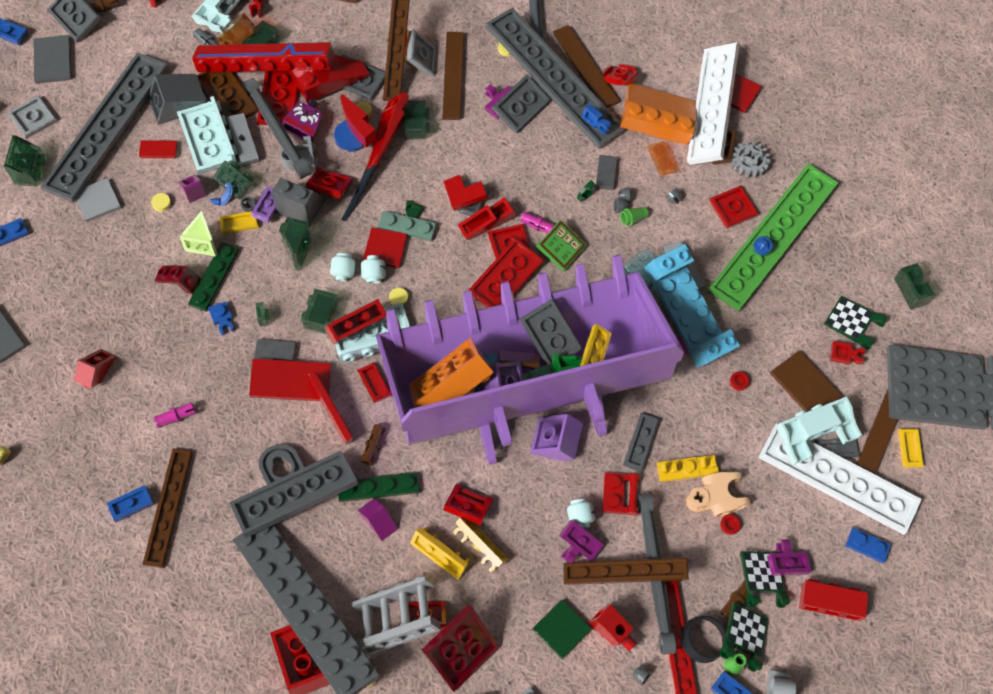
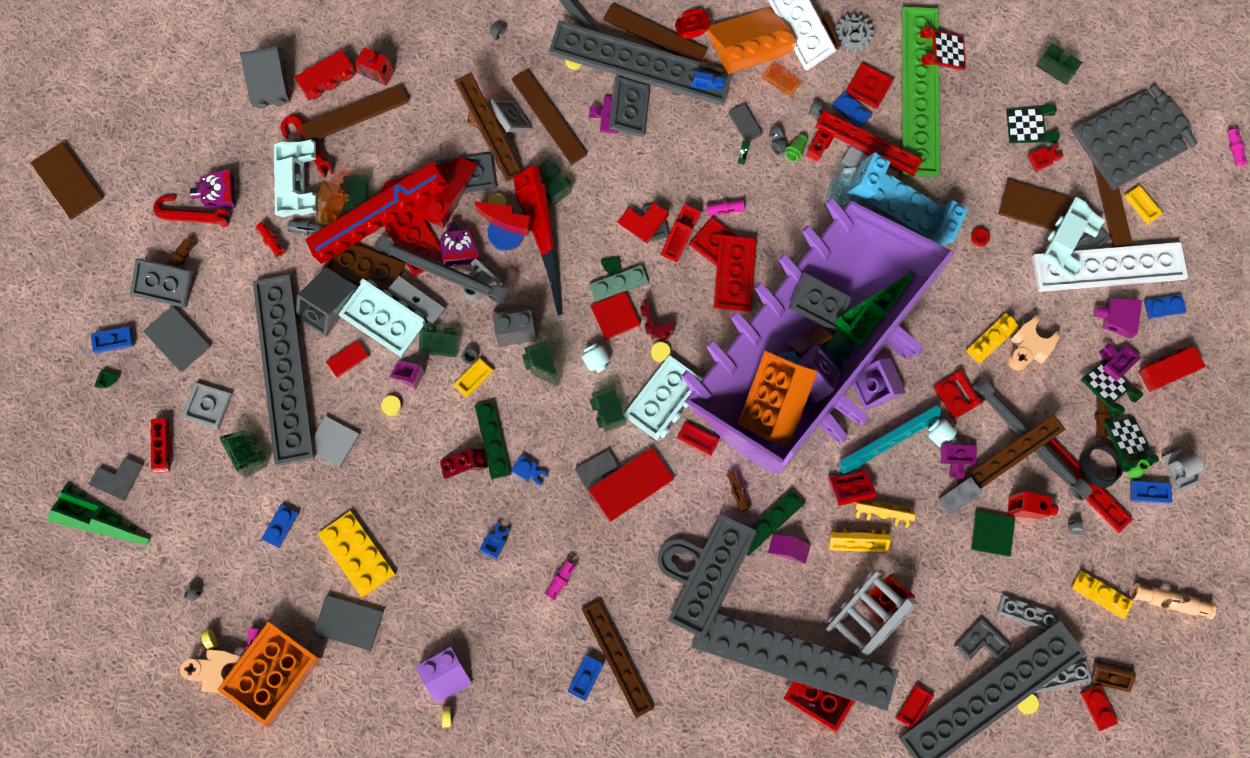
camera: 35 degrees left, 10 degrees up
(26, 422) = (443, 675): none -> medium lavender slope
(43, 291) = (356, 554): none -> yellow plate
(93, 368) = (461, 589): red slope -> none
(148, 352) = (494, 544): none -> blue plate
(175, 33) = (270, 239): none -> red pin
(198, 238) = (456, 415): yellowish green slope -> none
(225, 198) = (444, 363): piece -> none
(262, 314) = (563, 445): clear green plate -> none
(265, 206) = (487, 345): medium lavender plate -> none
(329, 183) = (526, 290): red plate -> none
(330, 407) = (684, 485): red tile -> none
(355, 321) = (651, 399): red brick -> none
(373, 269) = (623, 342): light aqua head -> none
(407, 279) = (662, 332): none -> dark red bracket
(460, 648) = (936, 604): dark red plate -> none
(530, 488) = (889, 440): none -> teal tile
(557, 576) = (960, 496): none -> flat silver tile
(561, 245) = (759, 215): tile -> none
(596, 345) = (868, 296): yellow plate -> none
(641, 442) = (942, 341): dark grey tile -> none
(660, 225) = (825, 143): none -> red piece
(697, 246) = (868, 142): none -> red tile
(704, 216) = (852, 110): none -> blue plate
(730, 524) = (1056, 361): red tile -> none
(763, 246) = (920, 107): blue tile -> none
(817, 524) = (1120, 316): none -> magenta torso
(821, 217) = (947, 49): none -> flag

